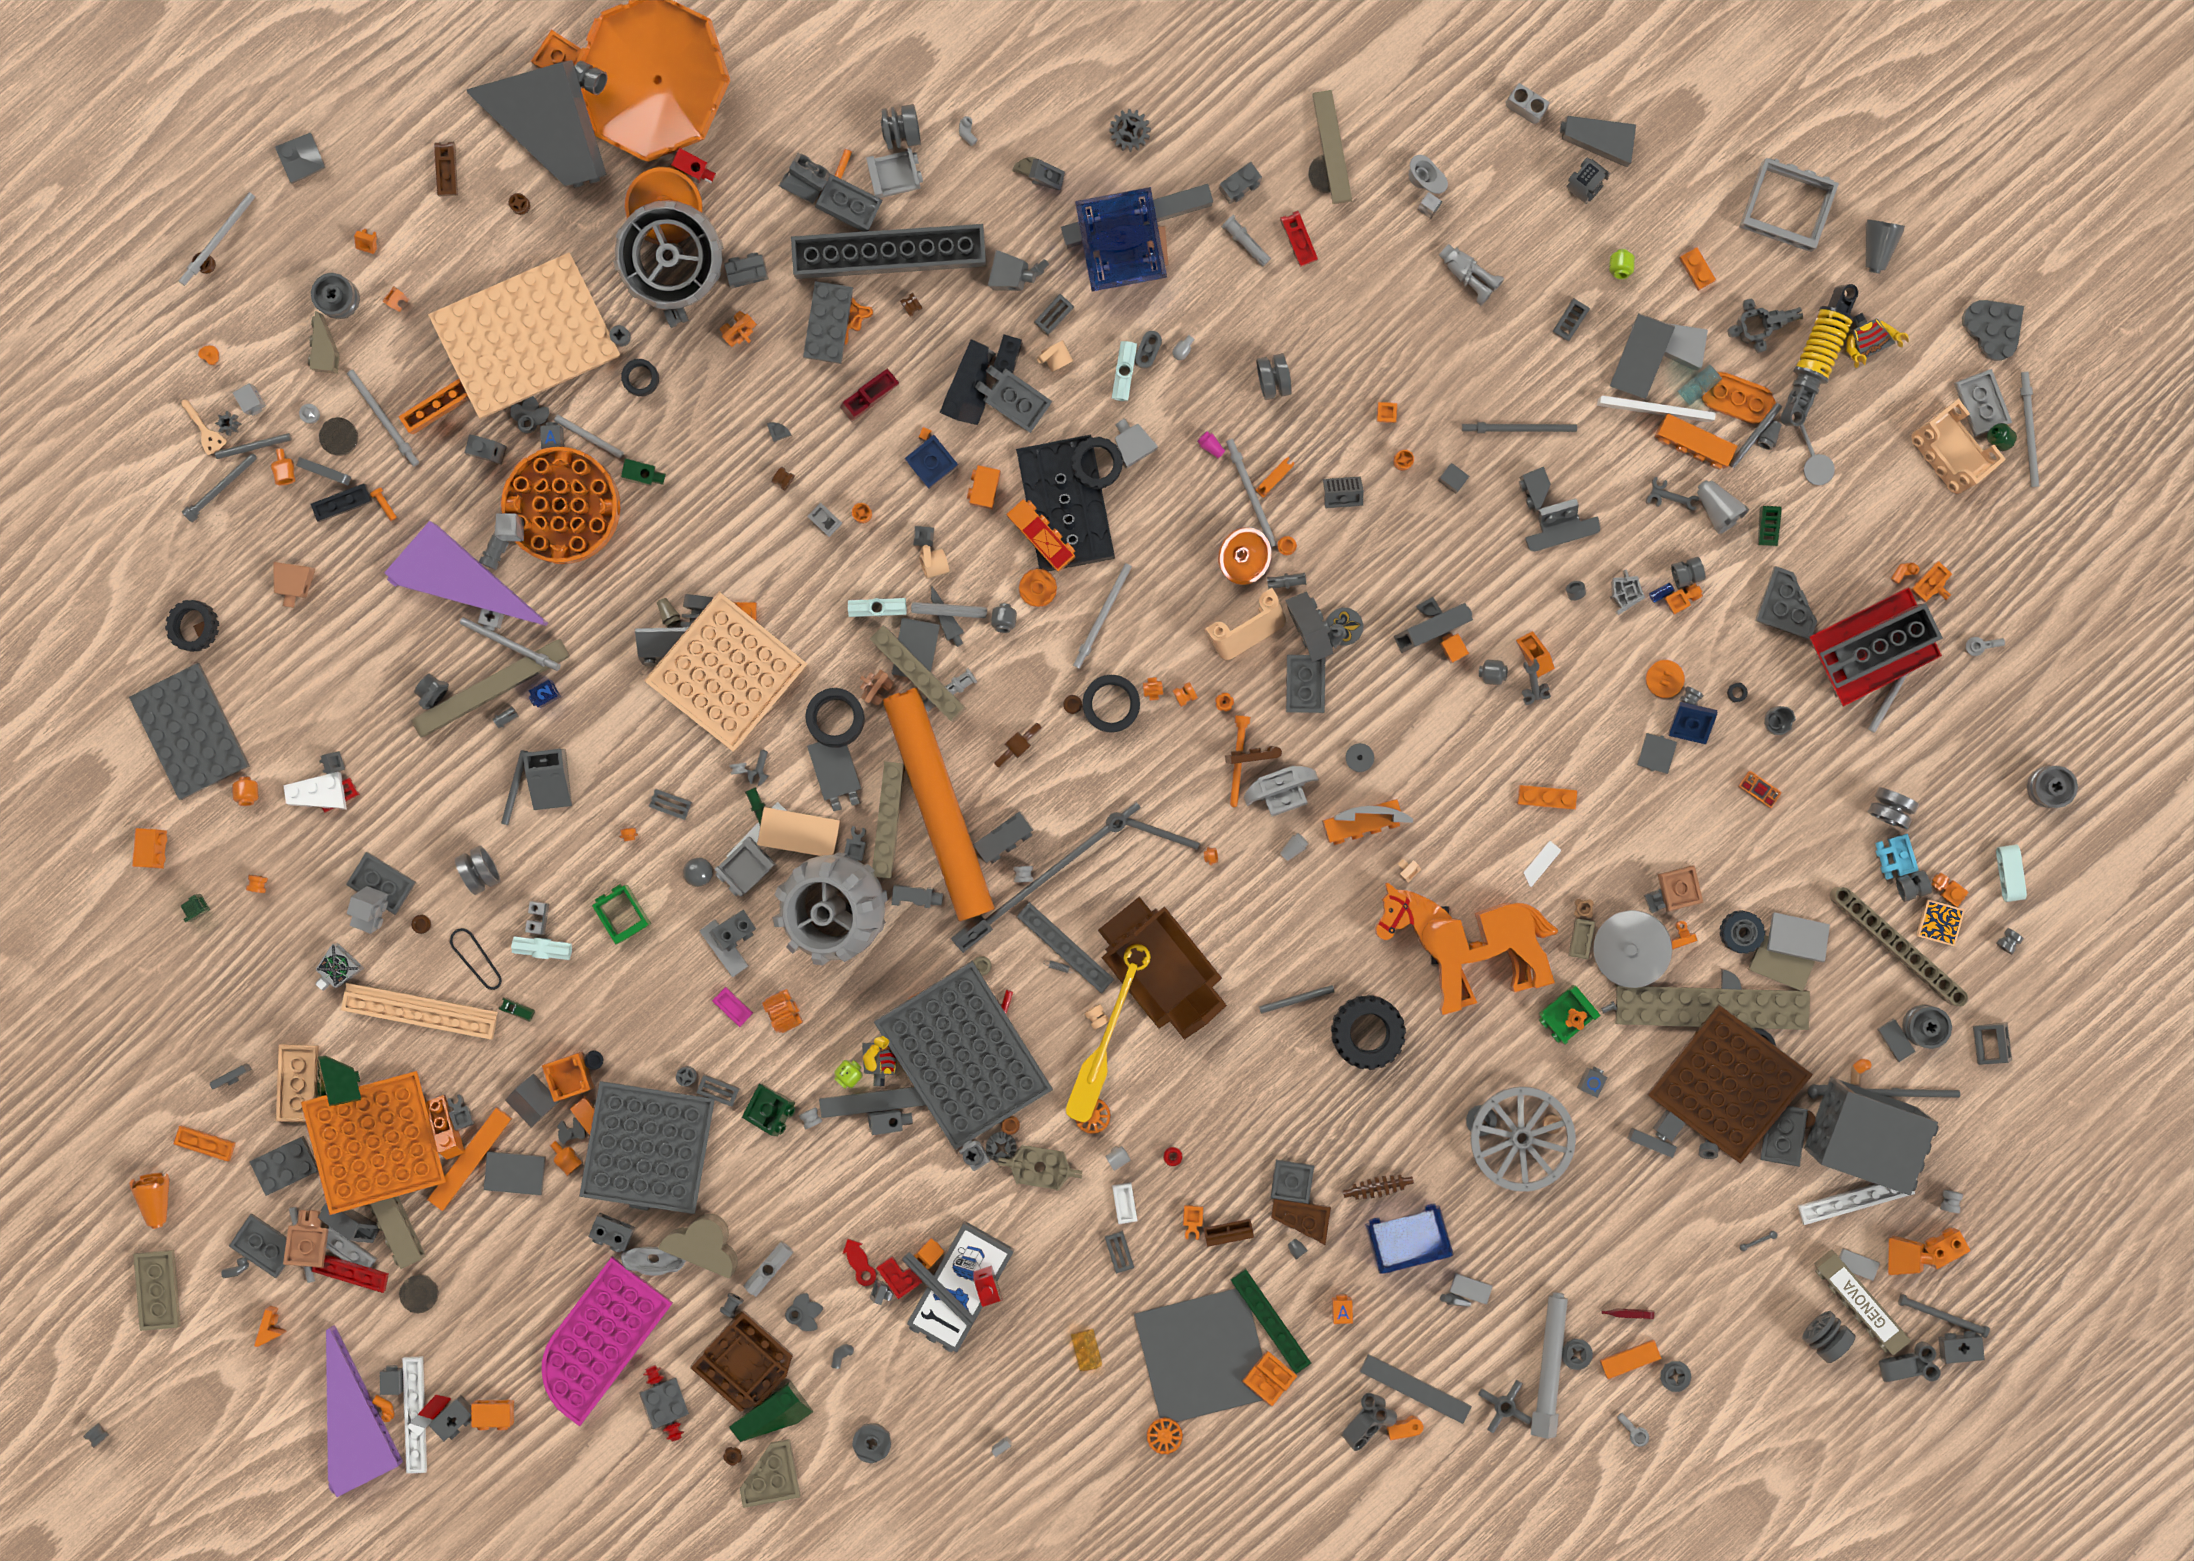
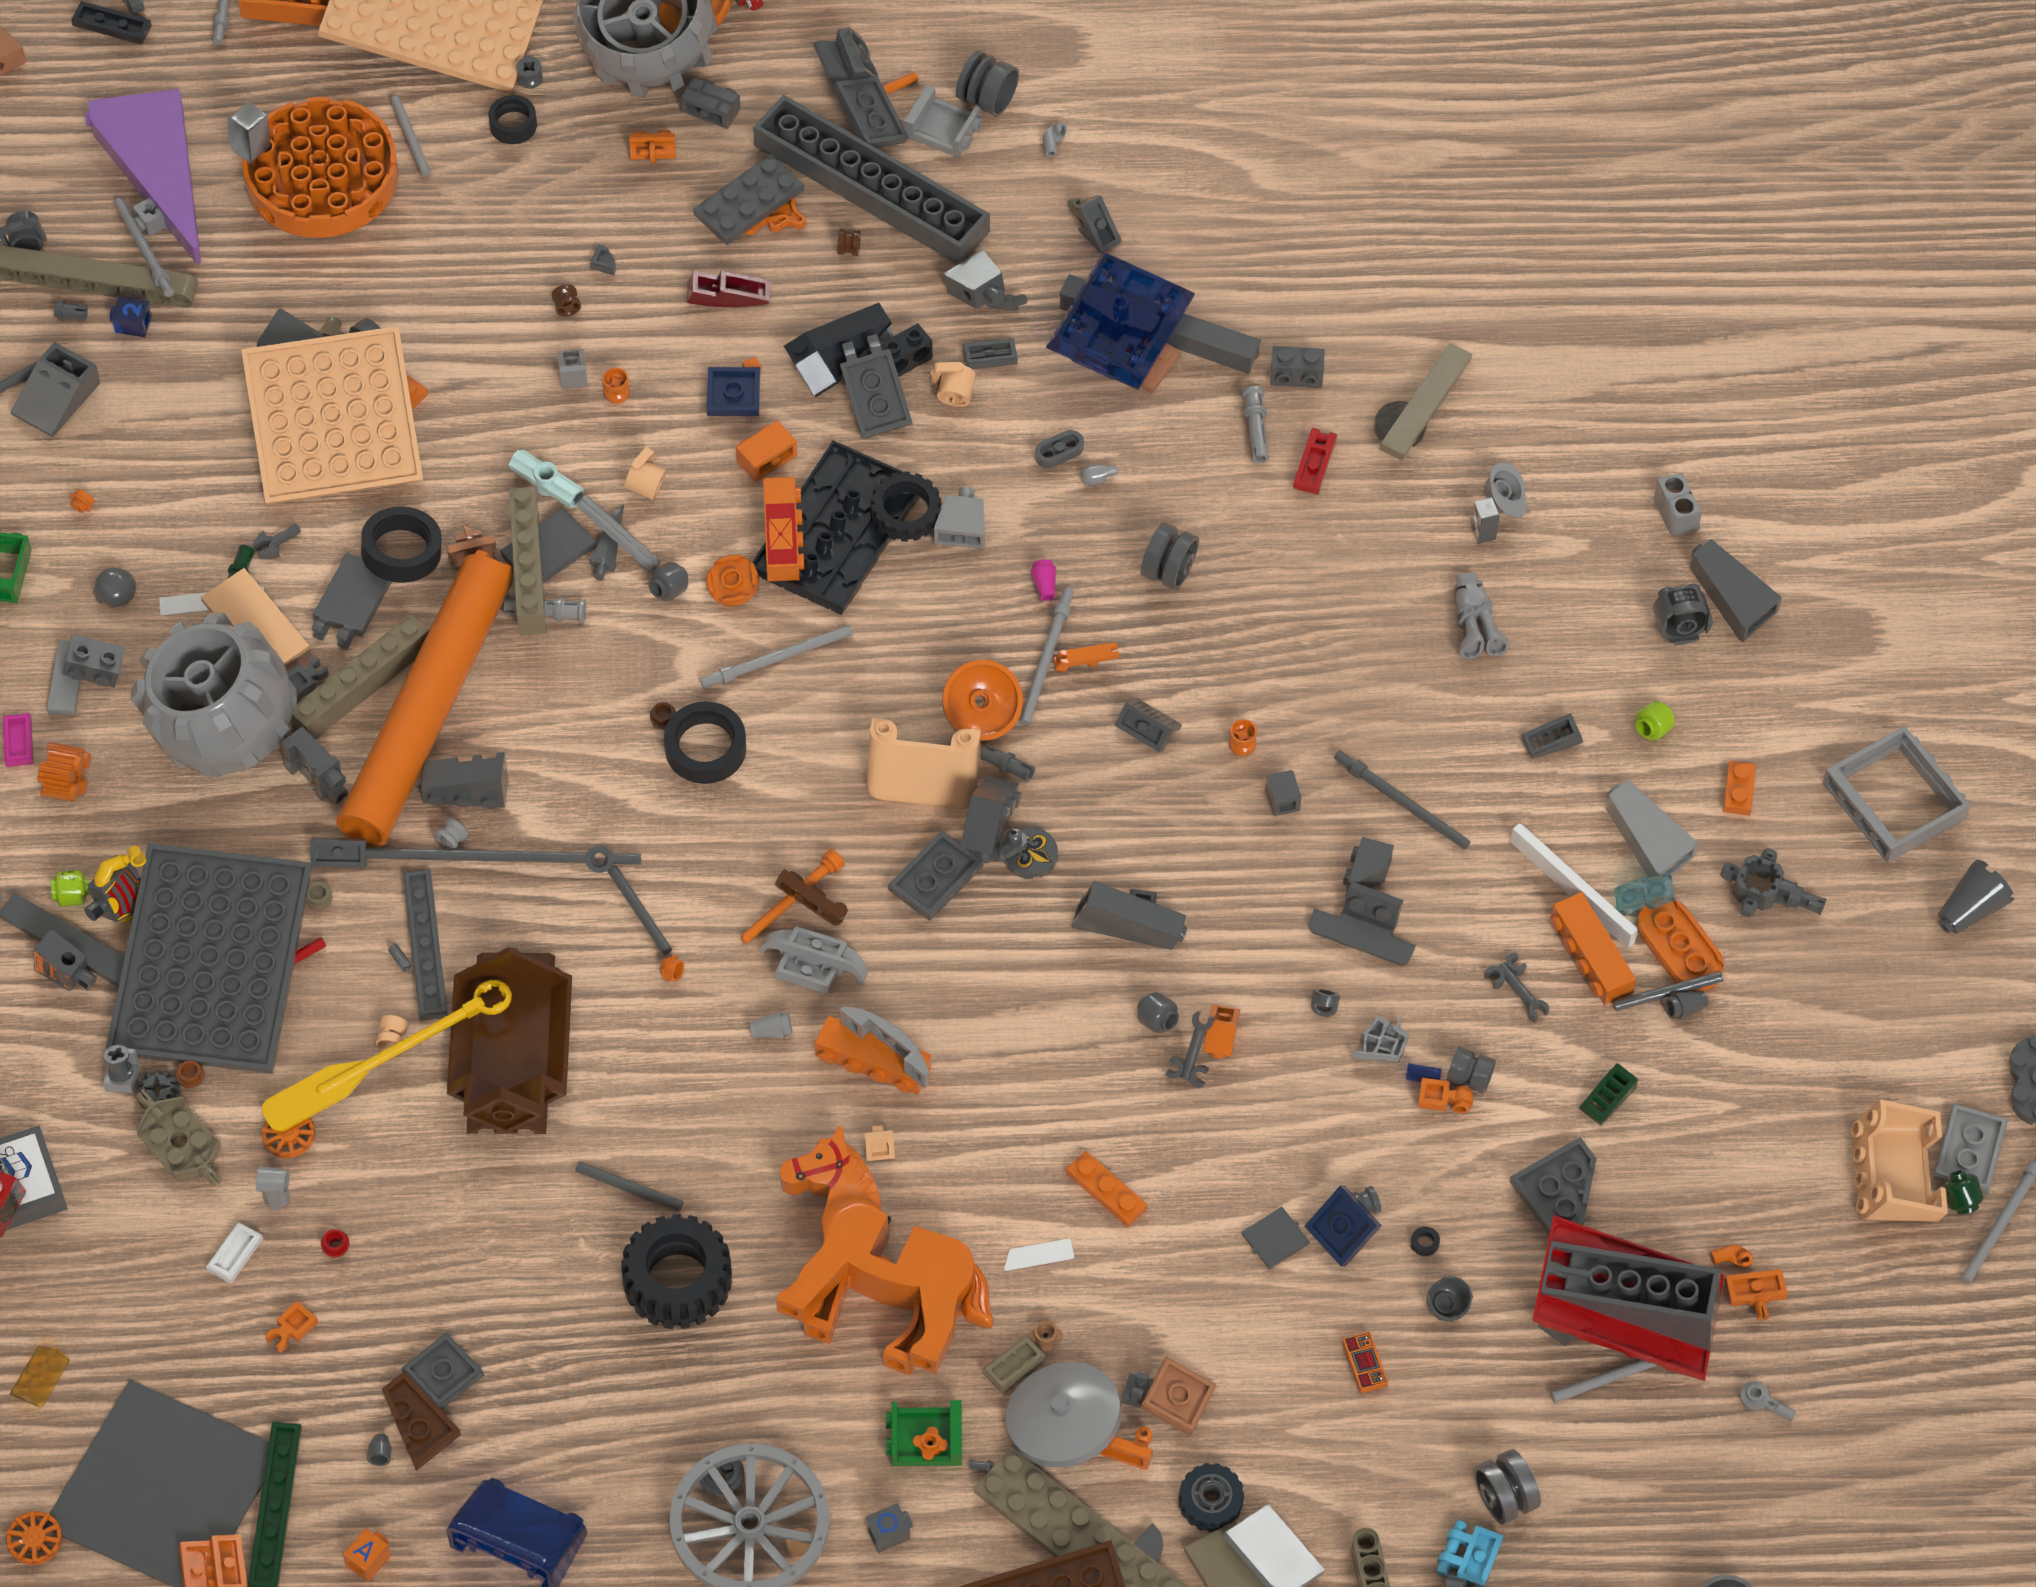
camera: 35 degrees right, 30 degrees down
(377, 493) = (153, 39): orange piece -> none
(484, 449) = (290, 63): dark grey torso -> none
(493, 552) = (220, 161): dark grey axle -> none
(529, 412) = (374, 77): dark grey plate -> none
(552, 435) = (377, 102): dark grey brick -> none
(632, 470) = (426, 192): dark green torso -> none
(654, 799) = (143, 491): dark grey tile -> none
(680, 315) = (602, 92): dark grey wheel -> none
(738, 768) = (255, 521): light grey bush -> none
(744, 867) = (159, 612): light grey panel -> none
(923, 536) = (663, 451): dark grey tile -> none
(1017, 745) = (567, 709): reddish brown piece -> none
(1114, 1236) = (190, 1300): dark grey tile -> none
(1125, 359) = (1005, 456): light aqua piece -> none
(1135, 126) = (1223, 246): dark grey gear -> none
(1153, 688) = (763, 758): orange gear -> none
(1180, 694) = (793, 790): orange wheel -> none
(1228, 1232) = (319, 1371): reddish brown piece -> none
(1229, 702) = (830, 824): orange plate -> none
(1286, 545) = (1039, 731): orange plate -> none
(1359, 757) = (928, 992): dark grey piece -> none
(1371, 1188) = (534, 1452): reddish brown piece -> none
(1386, 412) = (1265, 681): orange plate -> none
(1453, 647) = (1133, 954): orange brick -> none
(1642, 355) = (1600, 817): dark grey tile -> none
(1665, 678) = (1352, 1166): orange piece -> none
(1720, 506) = (1566, 1033): light grey cone -> none
(1818, 468) = (1716, 1079): light grey piece -> none
(1819, 353) = (1811, 955): piece -> none
(1871, 338) = (1884, 987): torso -> none

